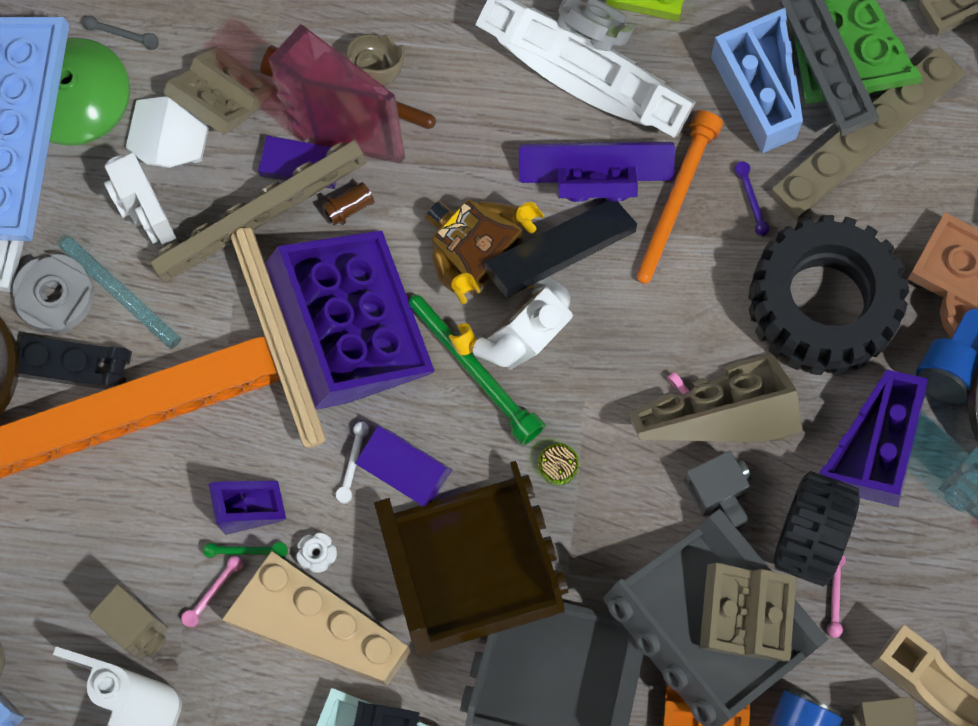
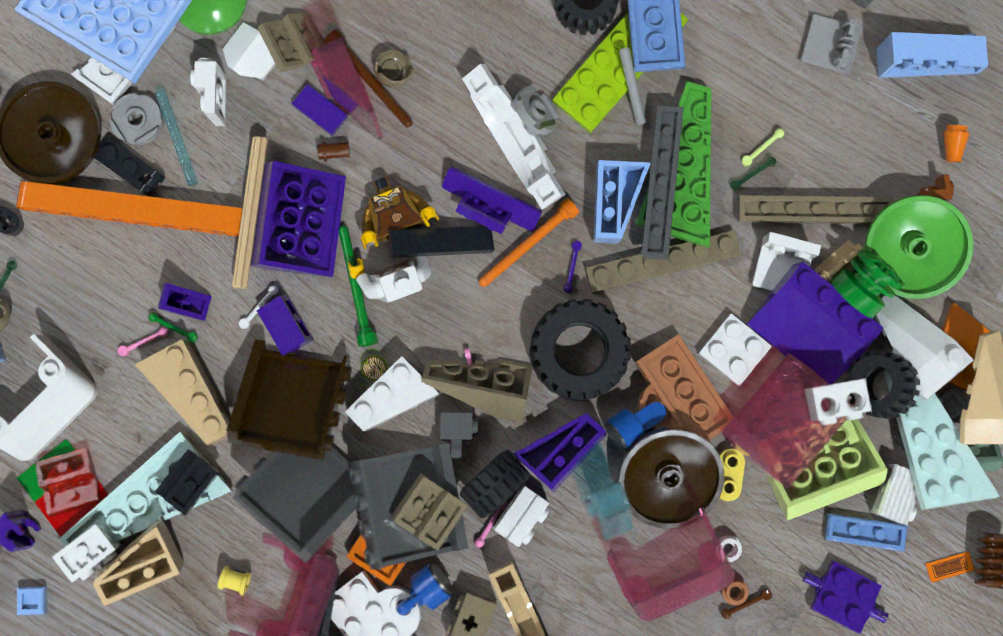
camera: 20 degrees right, 10 degrees up
(130, 623) = (83, 339): dark tan brick -> none
(273, 201) = (288, 128): dark tan plate -> none
(316, 563) = (217, 352): white plate -> none
(605, 485) = (390, 396): none -> white wedge
(874, 561) = (521, 516): none -> white brick

